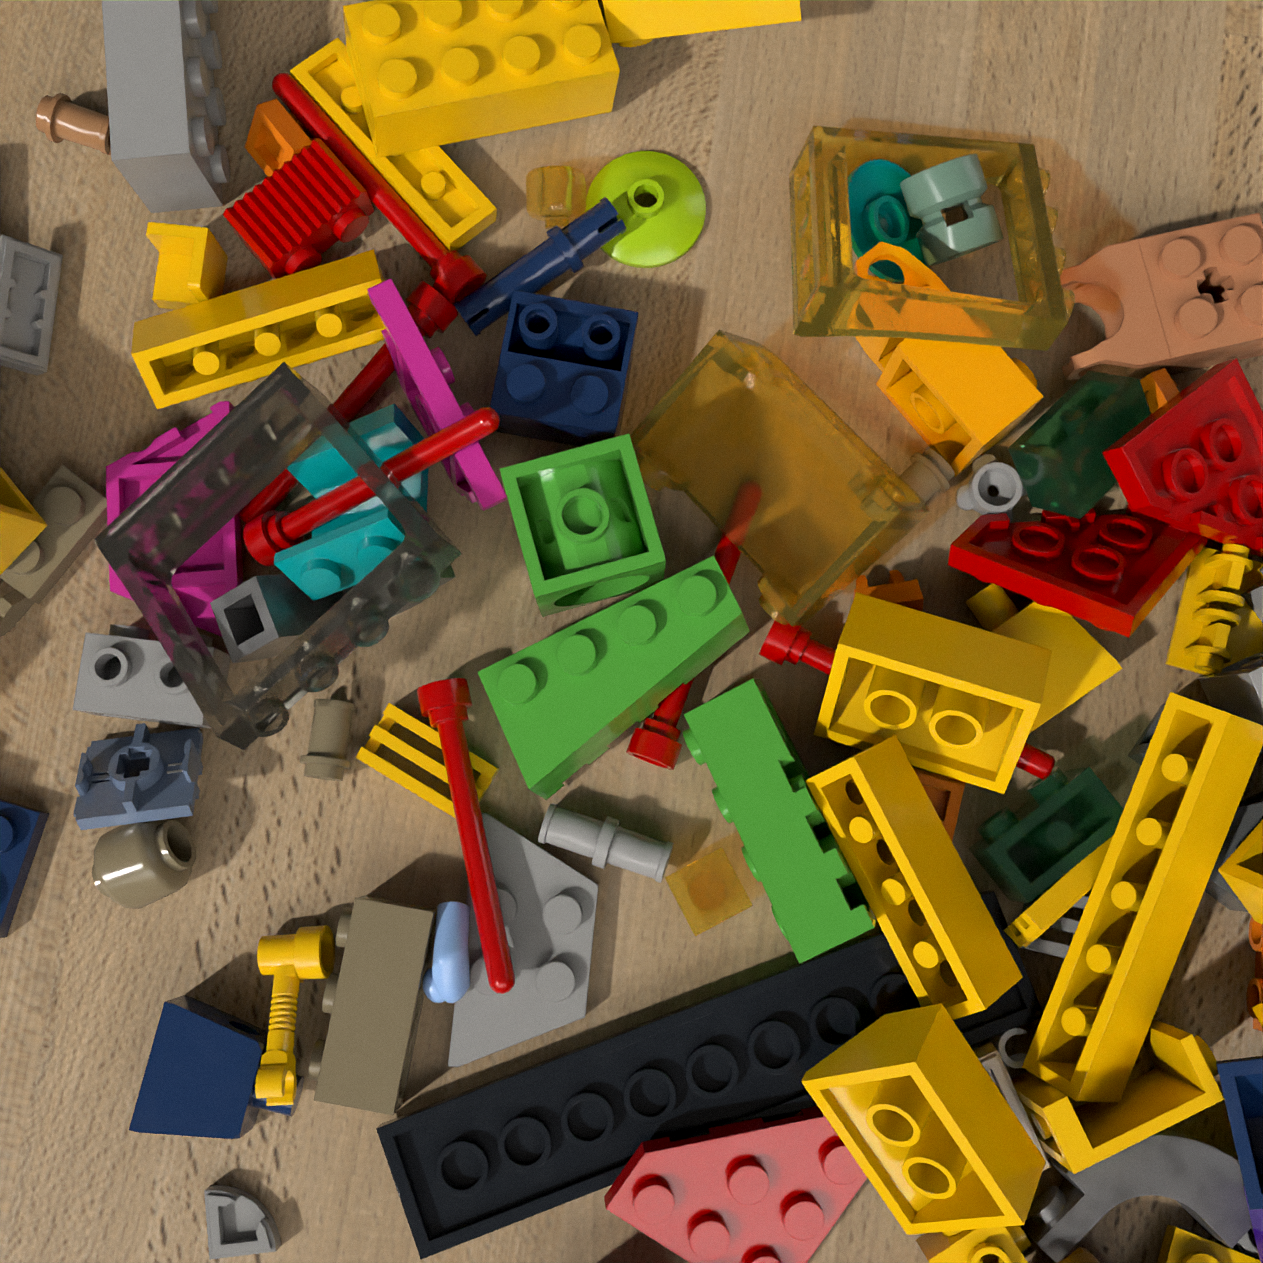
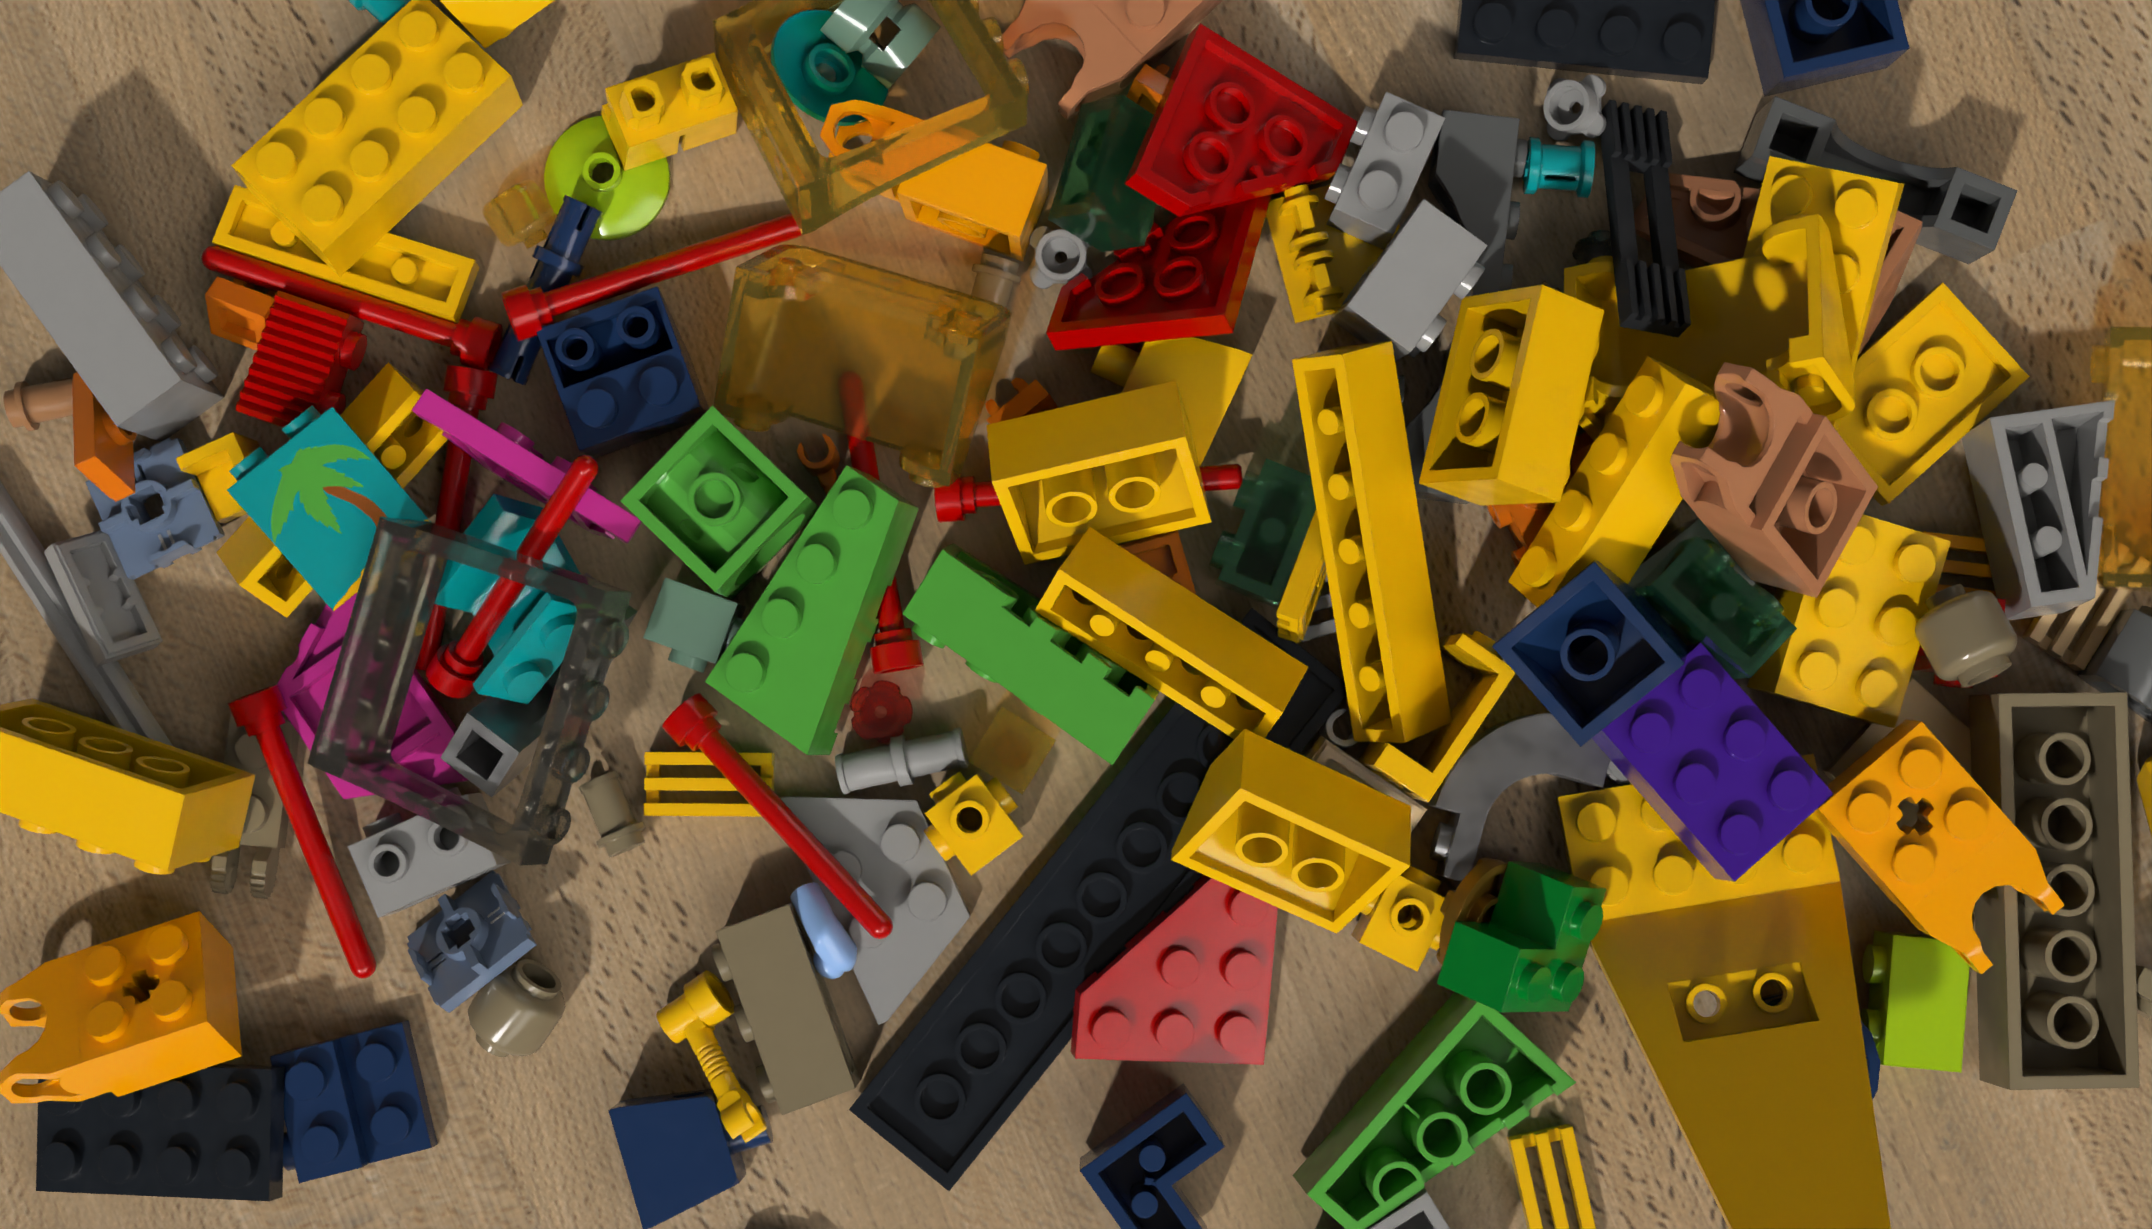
camera: 25 degrees left, 5 degrees up
(79, 275) = (182, 528): none -> sand blue piece
(83, 480) = (262, 717): none -> red piece
(92, 180) = (100, 447): none -> orange plate
(243, 322) = (321, 501): none -> teal panel
(496, 616) = (693, 624): none -> sand green brick
(522, 272) = (534, 309): none -> red piece
(624, 775) = (880, 694): none -> clear red plate
(644, 959) = (977, 846): none -> yellow brick
(684, 551) = (826, 468): none -> orange hand
(733, 174) = (669, 107): none -> yellow hips

